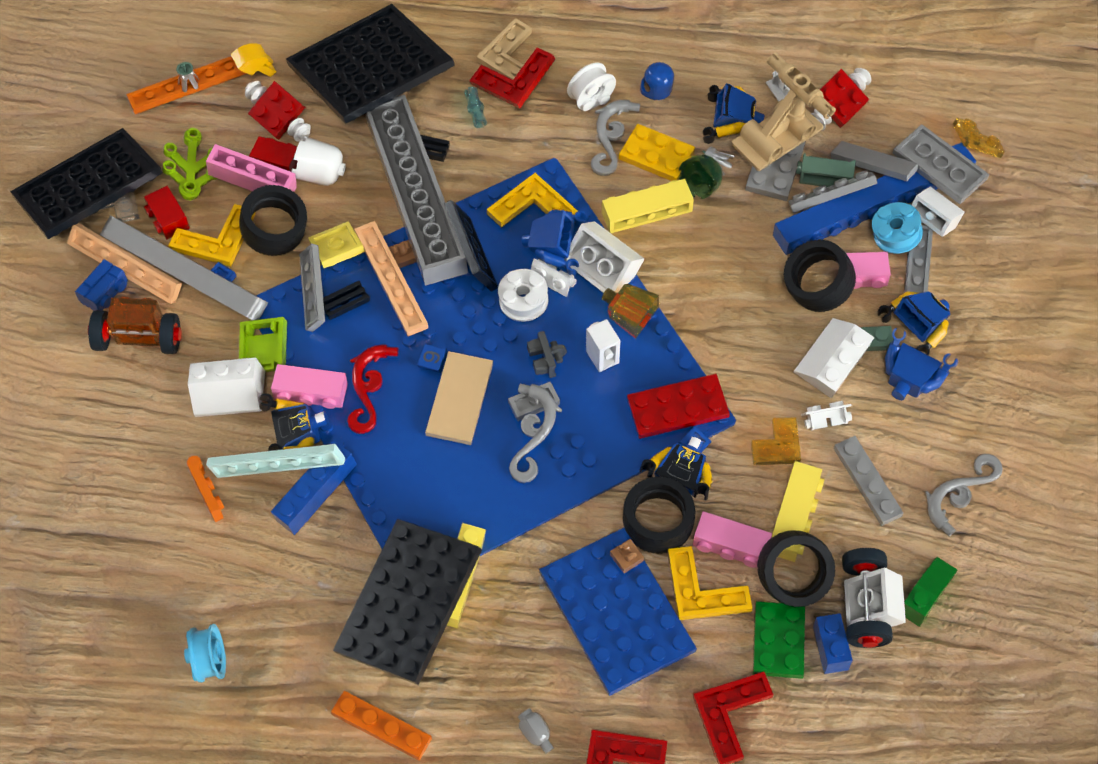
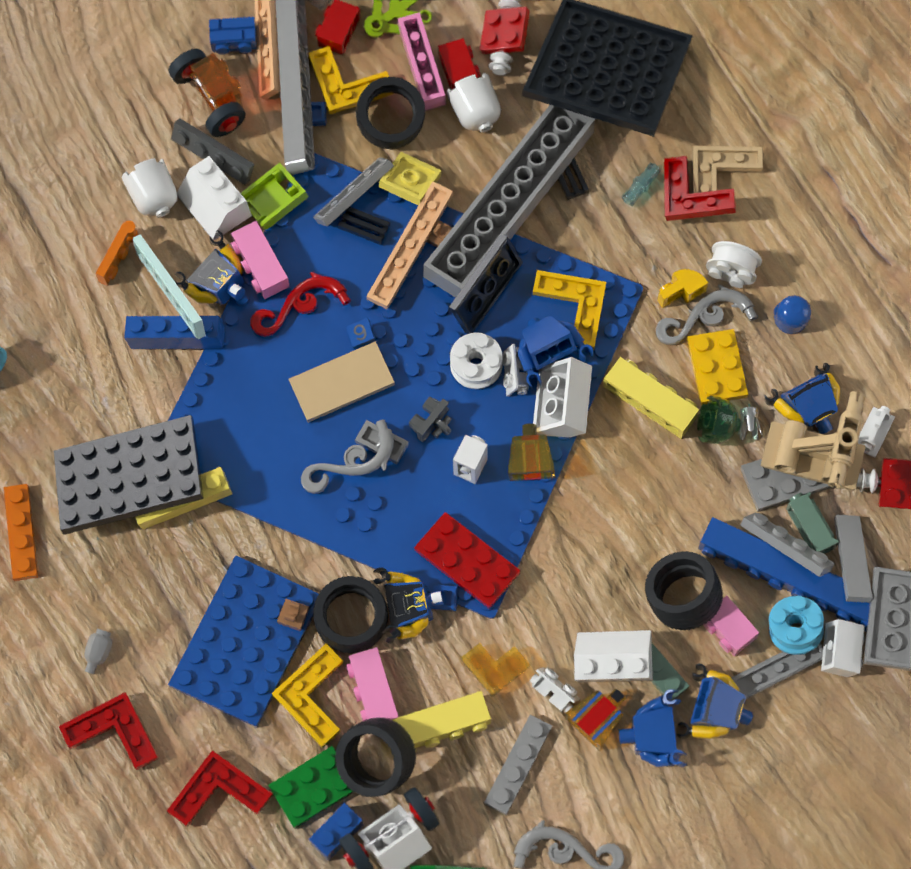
camera: 55 degrees right, 10 degrees up
(176, 424) = (151, 188): none -> white cylinder
(178, 365) = (205, 146): none -> dark grey plate
(577, 130) = (684, 283): none -> yellow brick
(872, 400) = (597, 716): none -> torso

